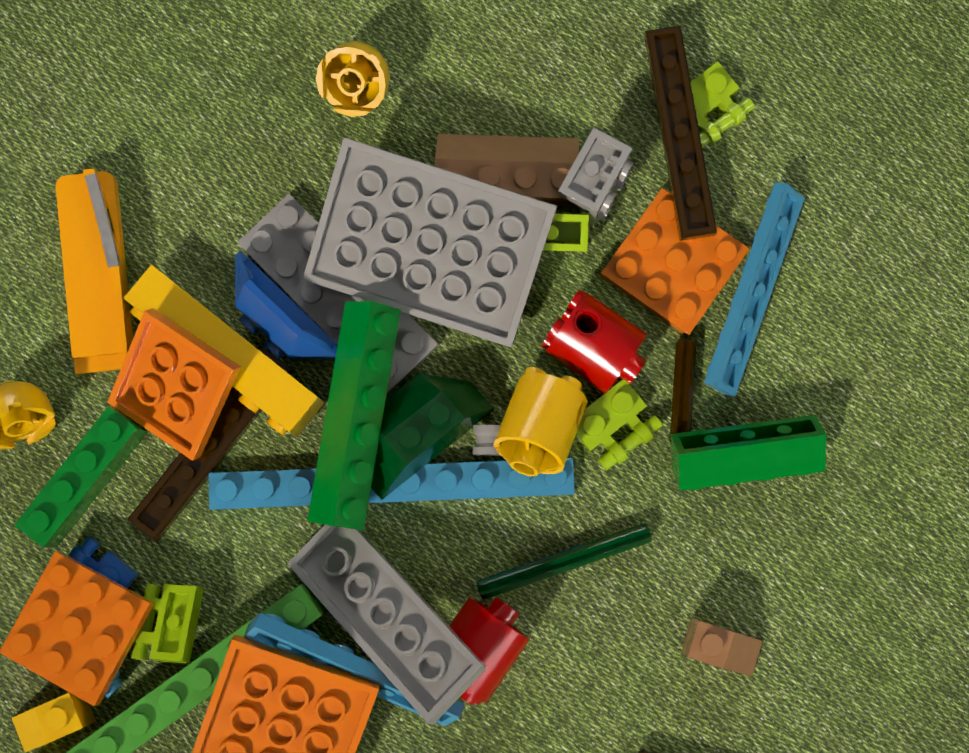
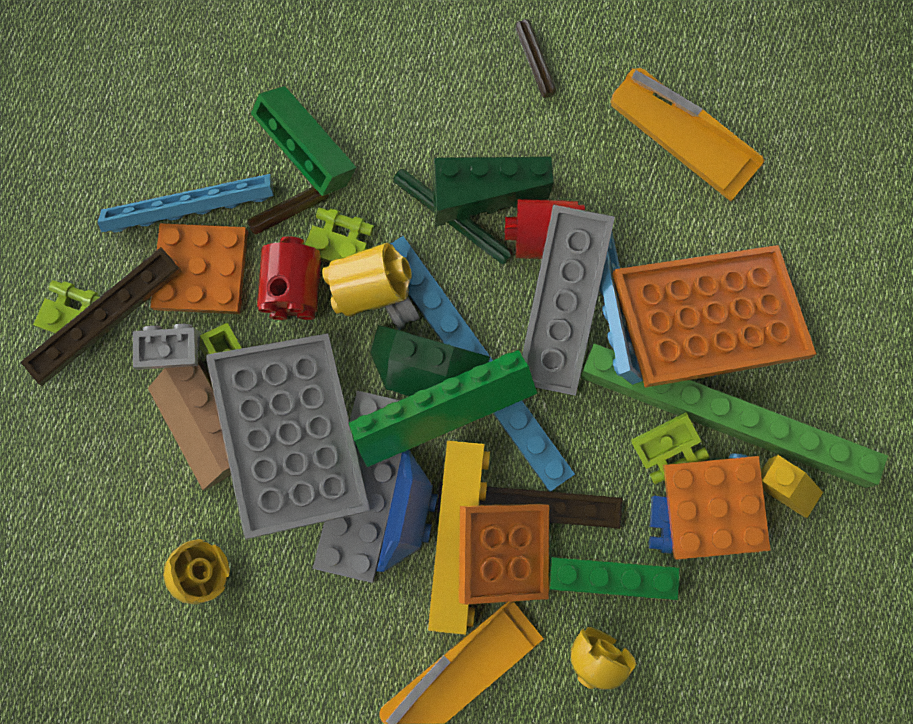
camera: 115 degrees left, 5 degrees down
(569, 618) = (487, 184): none -> dark green wedge
(721, 647) = (443, 87): medium nougat slope -> none

